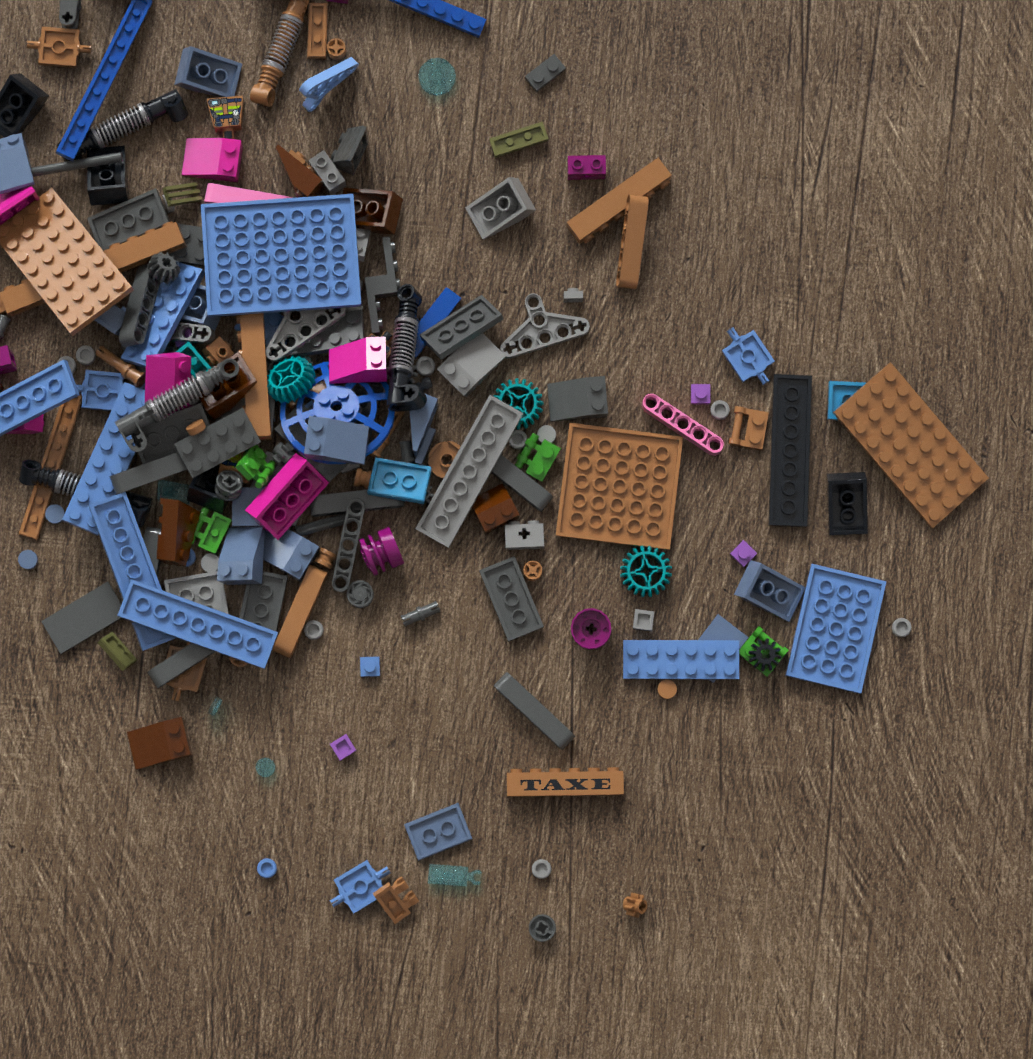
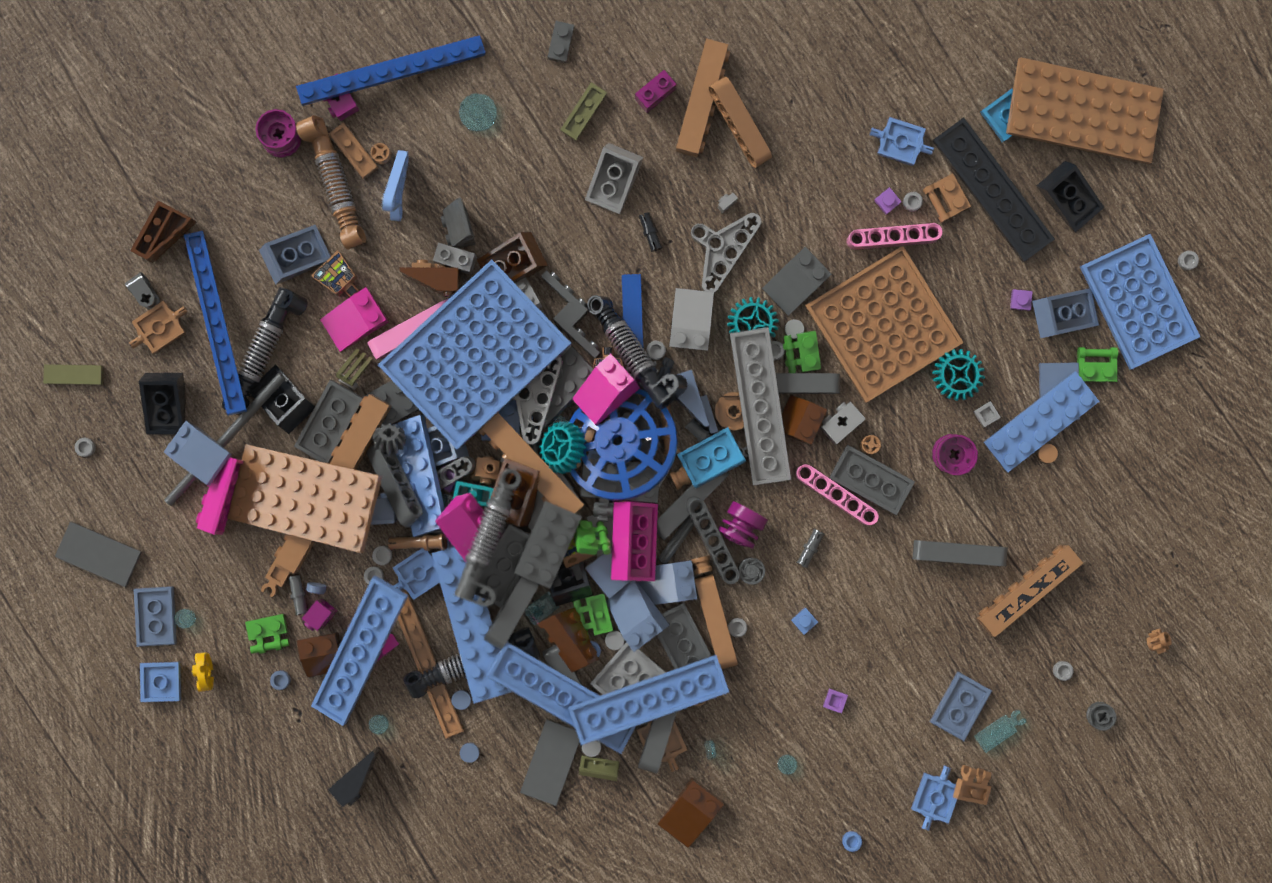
camera: 35 degrees left, 5 degrees up
(14, 339) = (316, 588): none -> sand blue tile
(125, 631) = (592, 748): none -> light grey tile
(196, 427) = (521, 546): medium nougat tile -> none
(229, 485) = (582, 569): dark grey wheel -> none
(336, 440) = (642, 468): sand blue slope -> none
(461, 327) = (661, 297): dark grey plate -> none
(474, 579) = (845, 498): none -> bright pink beam
(495, 271) = (650, 232): none -> black pin
(771, 654) = (1101, 372): black gear -> none

